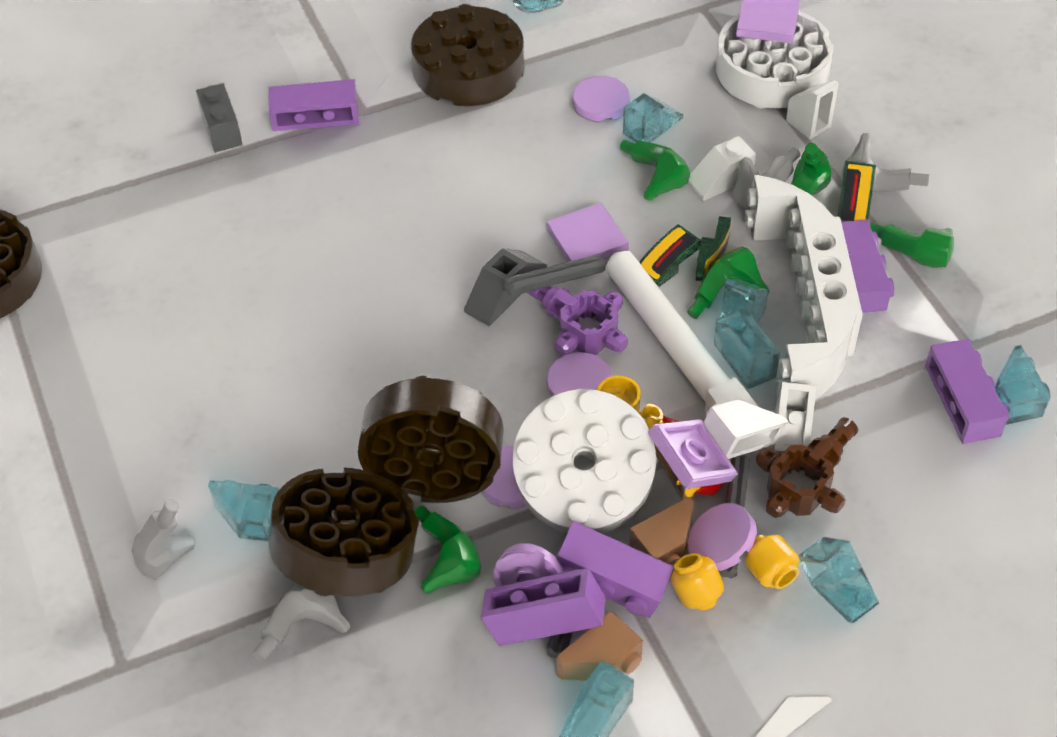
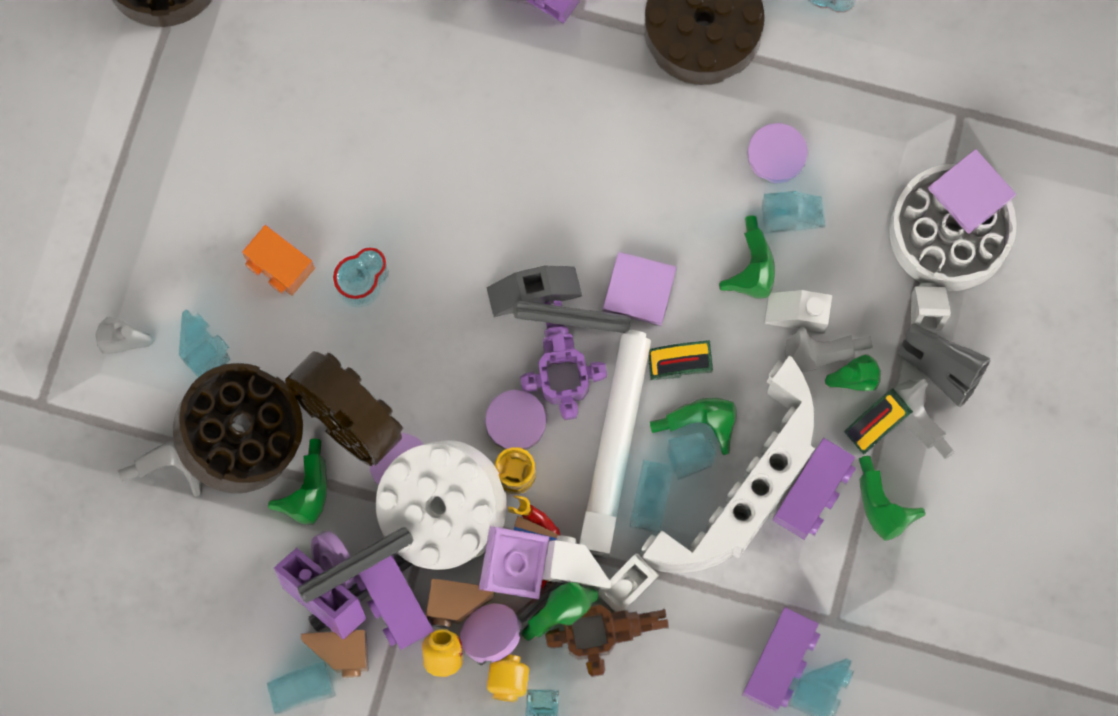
camera: 40 degrees right, 25 degrees up
(263, 400) = (278, 261): none -> orange brick
(349, 365) = (360, 277): none -> clear light blue piece
(557, 549) = (355, 565): none -> dark grey axle
(713, 248) = (711, 385): clear green slope -> none
(767, 453) = (563, 606): none -> green animal
(875, 118) = (947, 364): none -> dark grey piece

